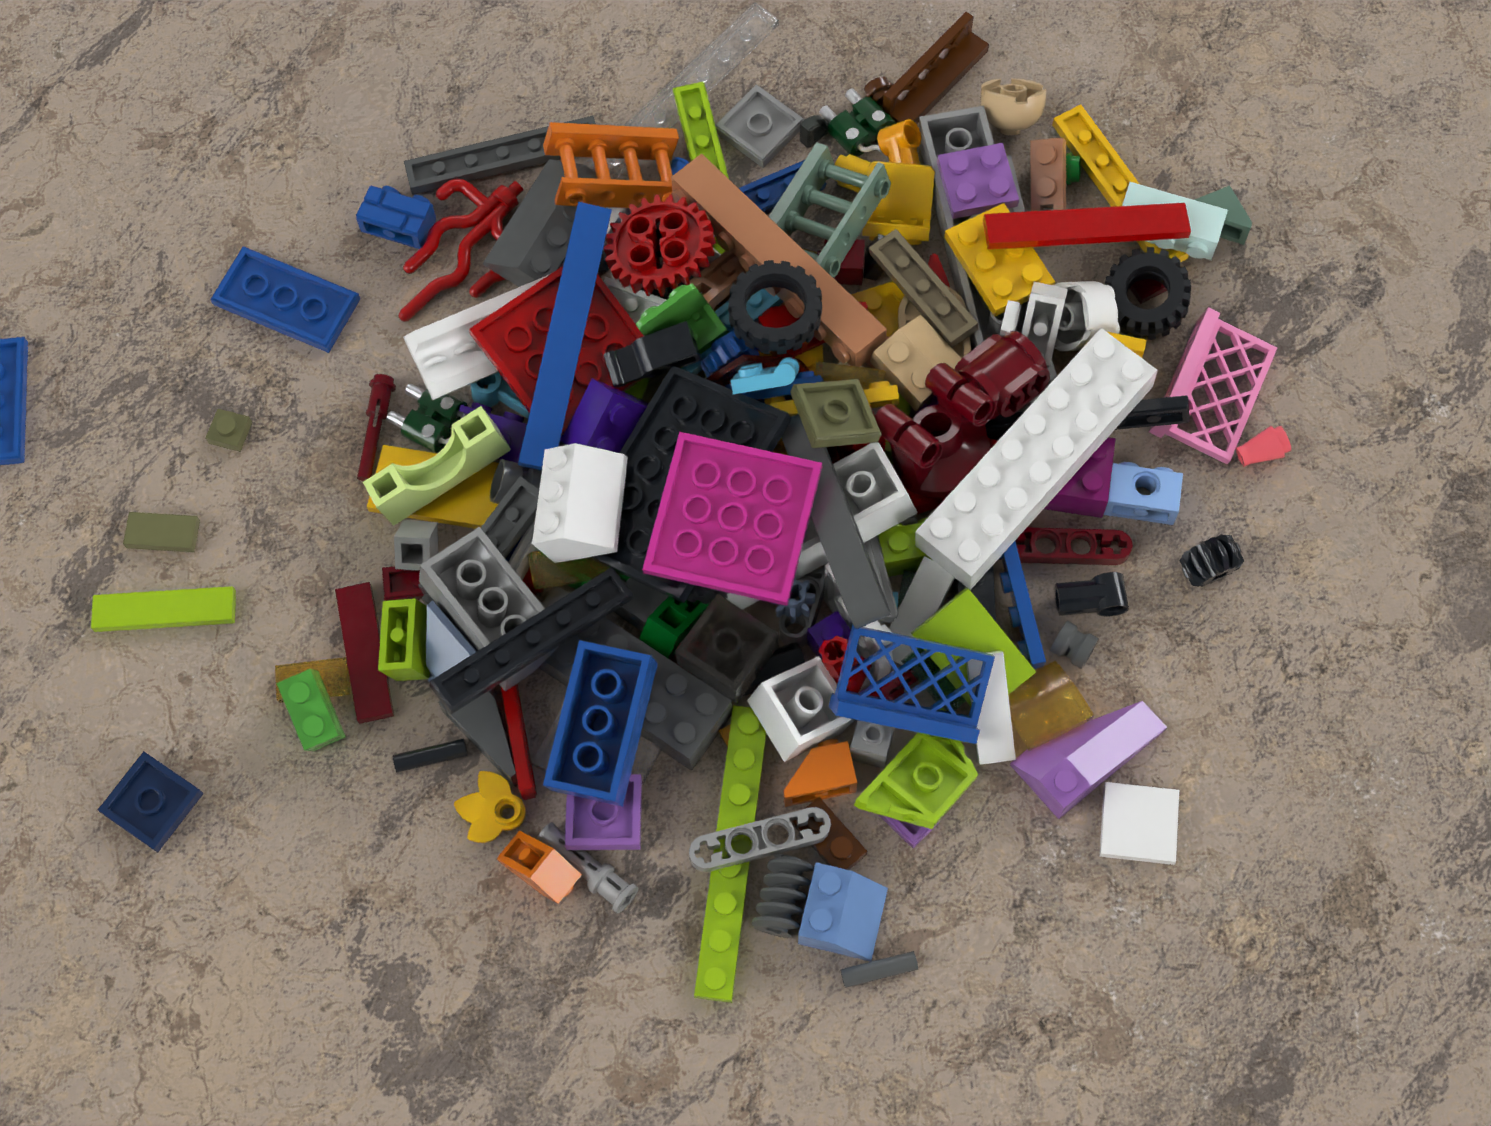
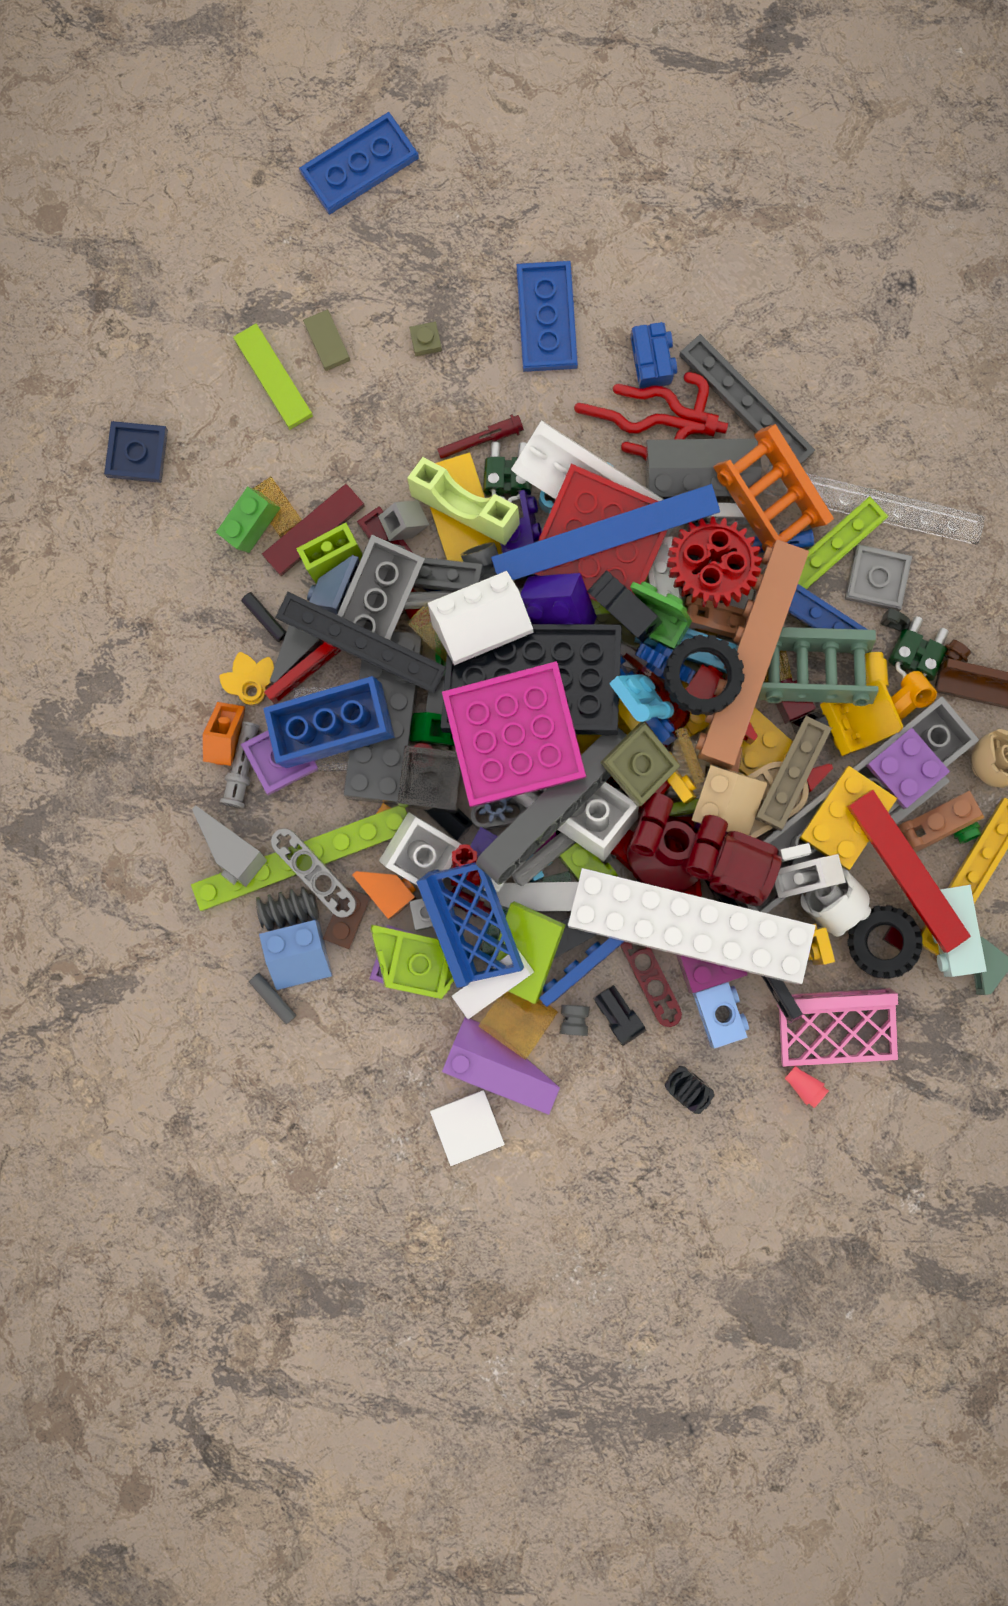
camera: 60 degrees right, 15 degrees up
(684, 920) = (233, 854): none -> light grey slope

